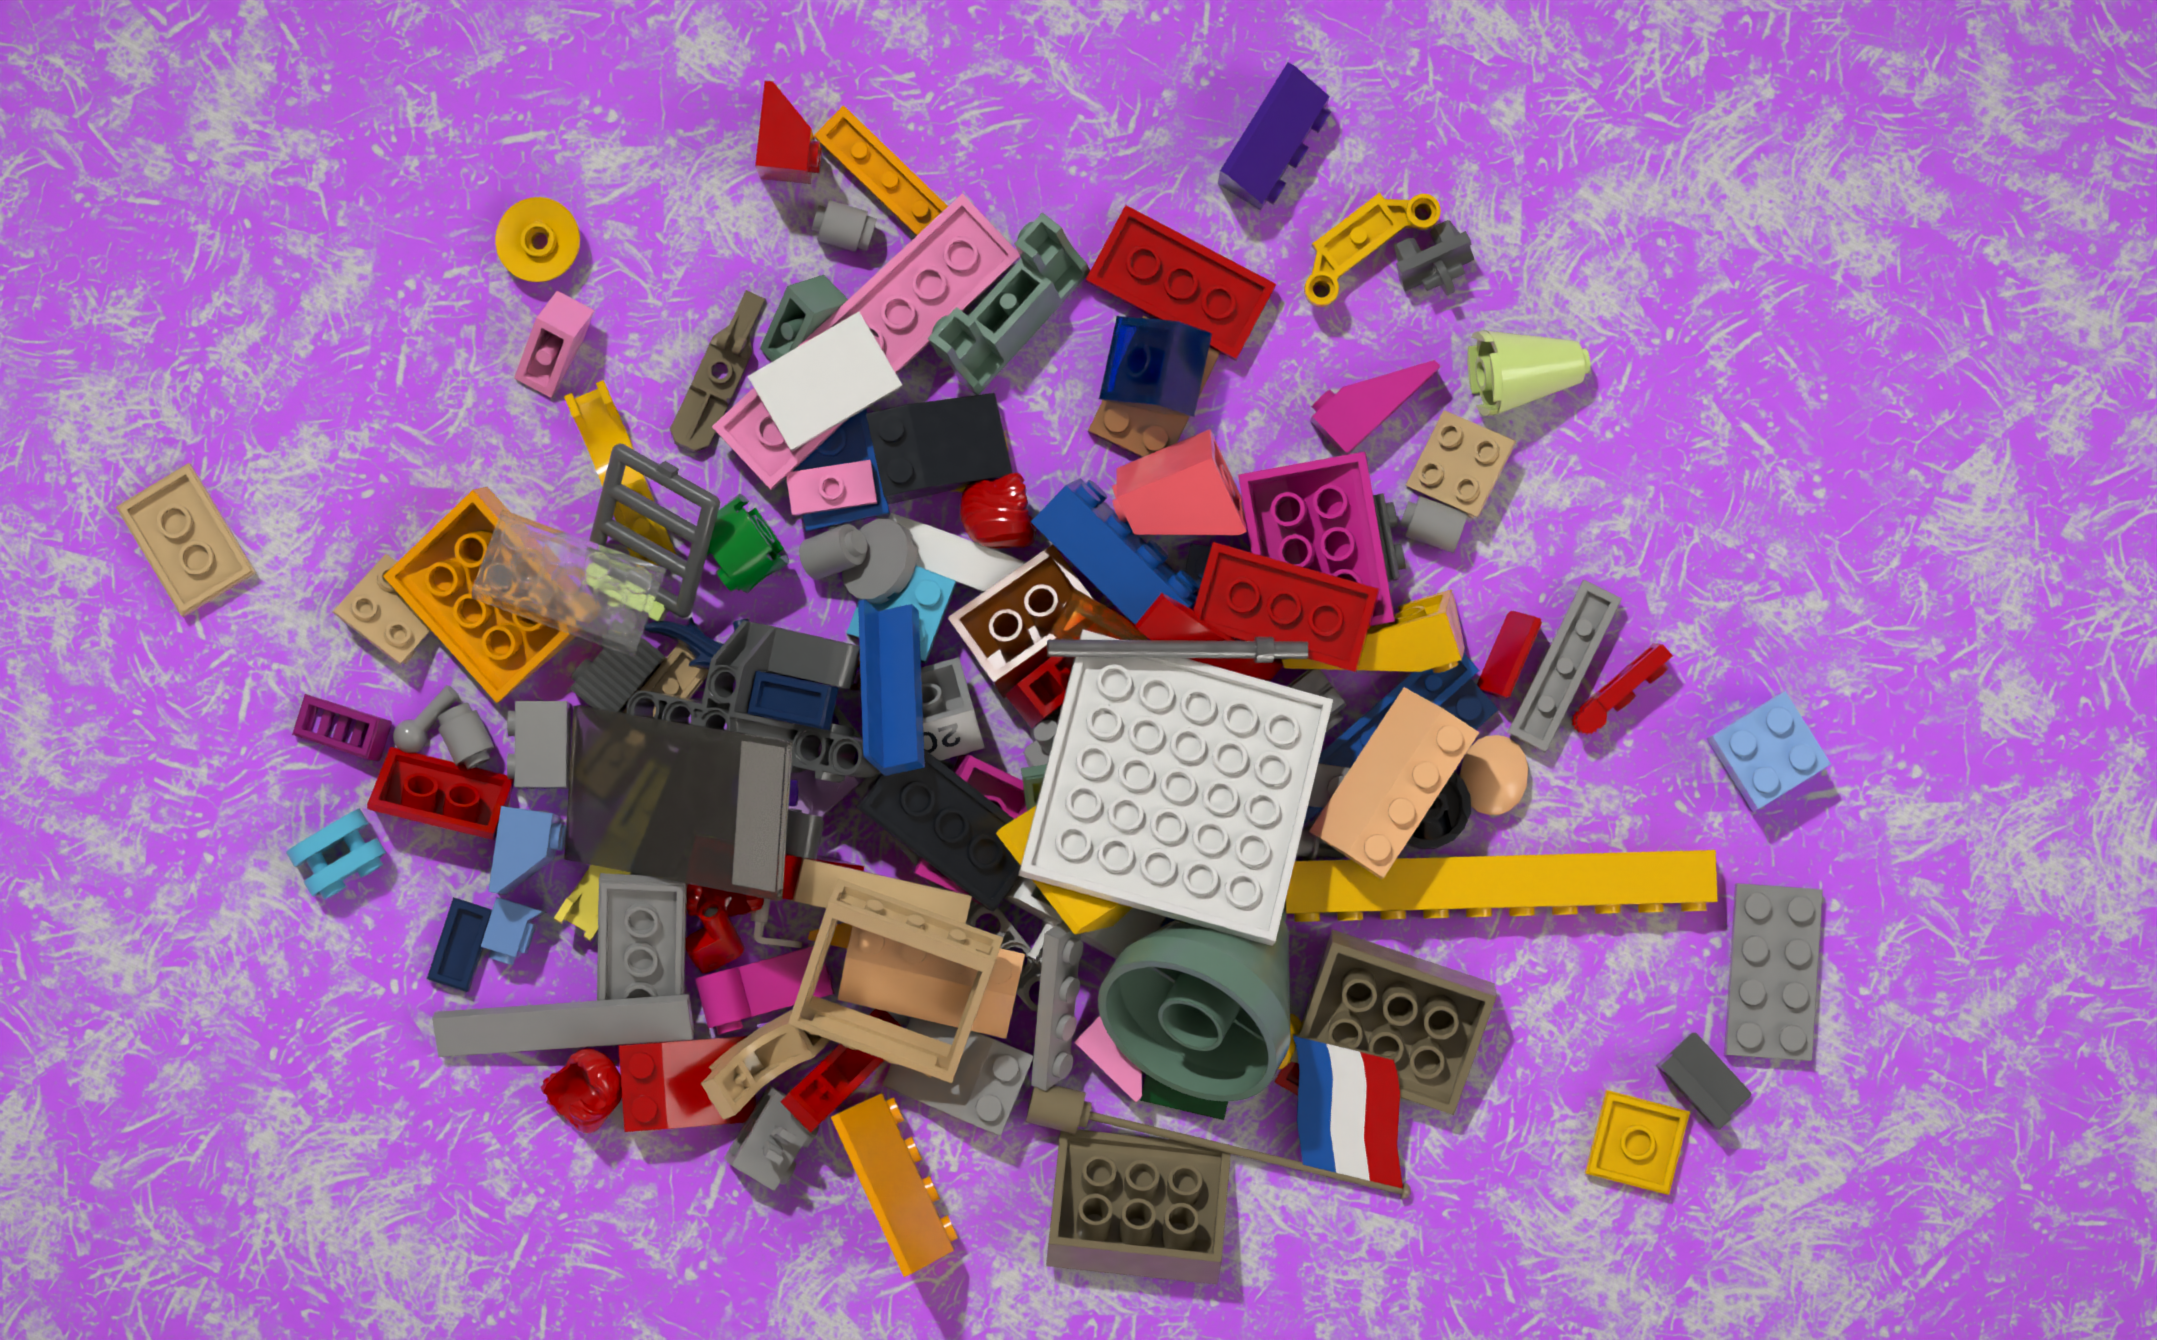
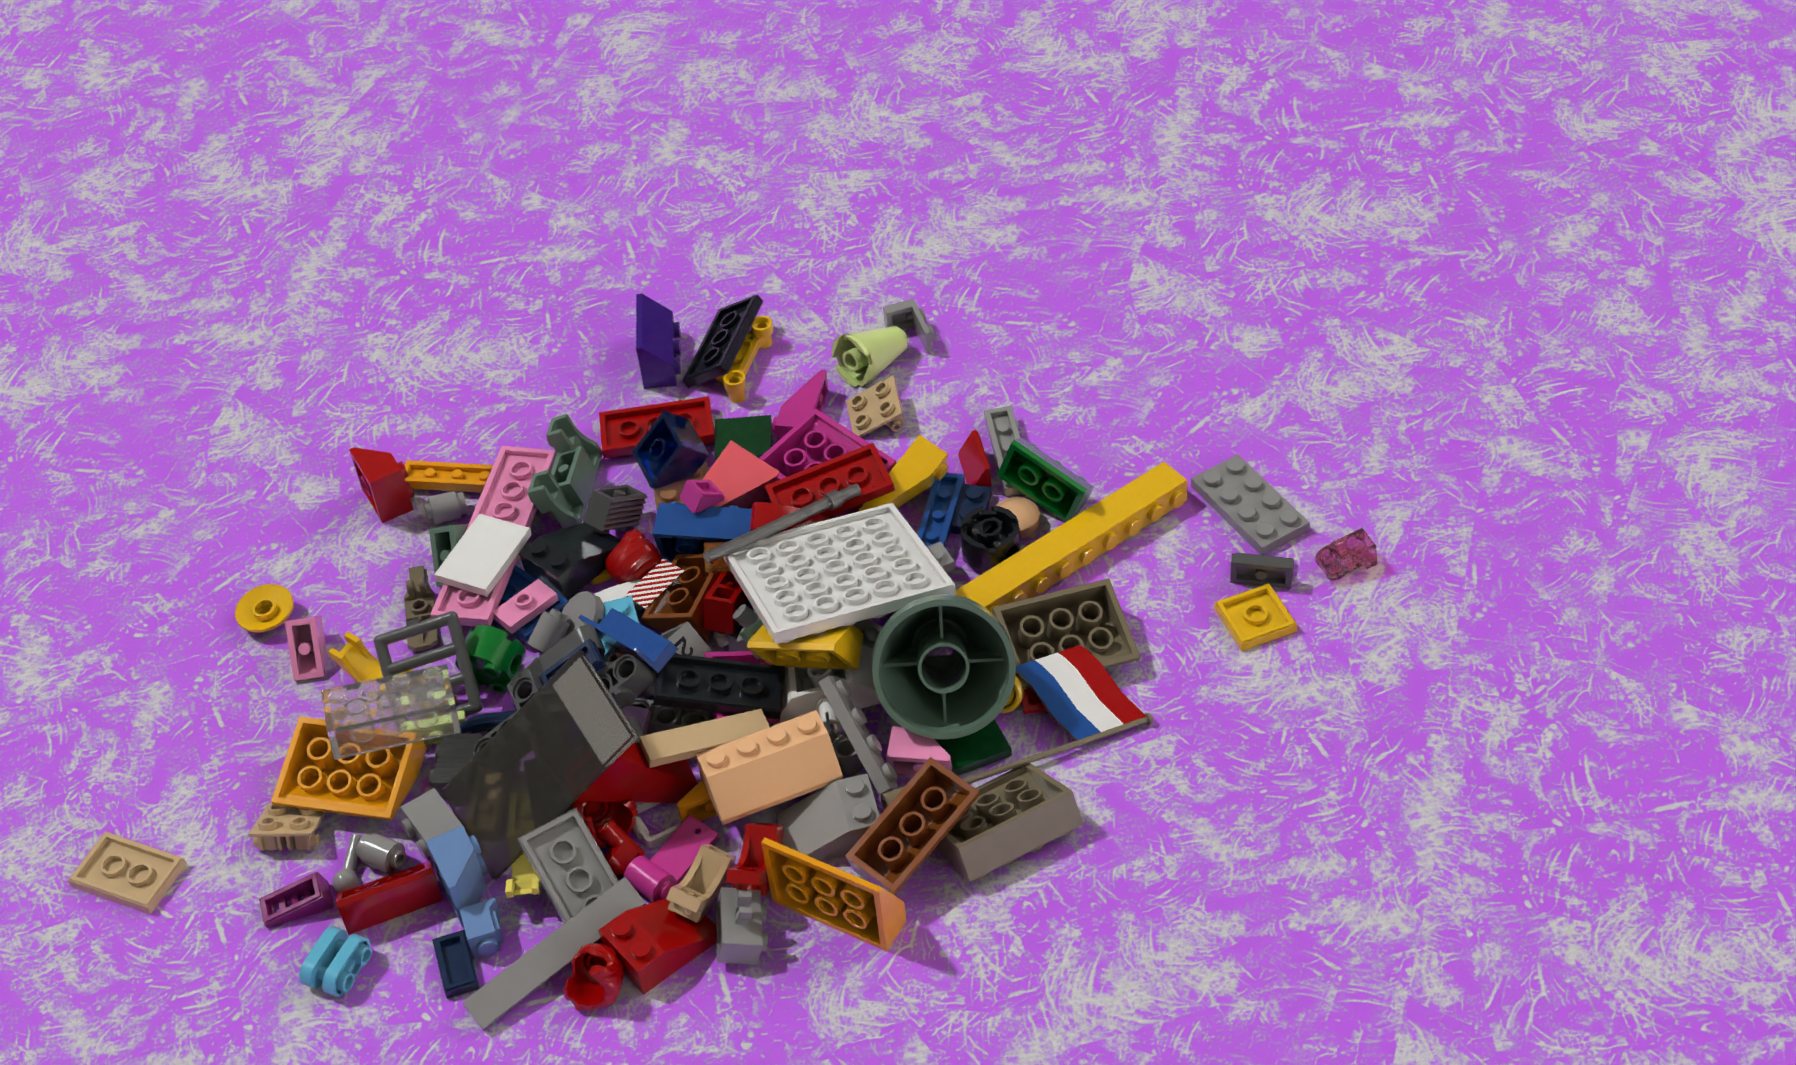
camera: 30 degrees left, 40 degrees down
(916, 929) = (735, 710): tan window -> none
(996, 575) = (654, 583): none -> sticker
(1026, 1177) = (911, 826): none -> dark orange slope
(1029, 413) = (614, 508): none -> dark grey brick
(1120, 518) = (700, 495): none -> dark pink slope
(1271, 385) = (750, 433): none -> dark green tile
(1360, 195) = (722, 341): none -> black tile
(1393, 782) = (961, 519): light nougat slope -> none
(1434, 523) = (884, 435): light grey brick -> none
(1436, 264) = (786, 344): dark grey hips -> none
(1558, 772) = (1044, 480): none -> green slope
(1611, 319) = (908, 315): none -> light grey bracket
(1619, 690) = (1052, 423): red hinge -> none
(1768, 751) = (1150, 416): light blue brick -> none
(1805, 1145) = (1347, 554): none -> clear pink leg

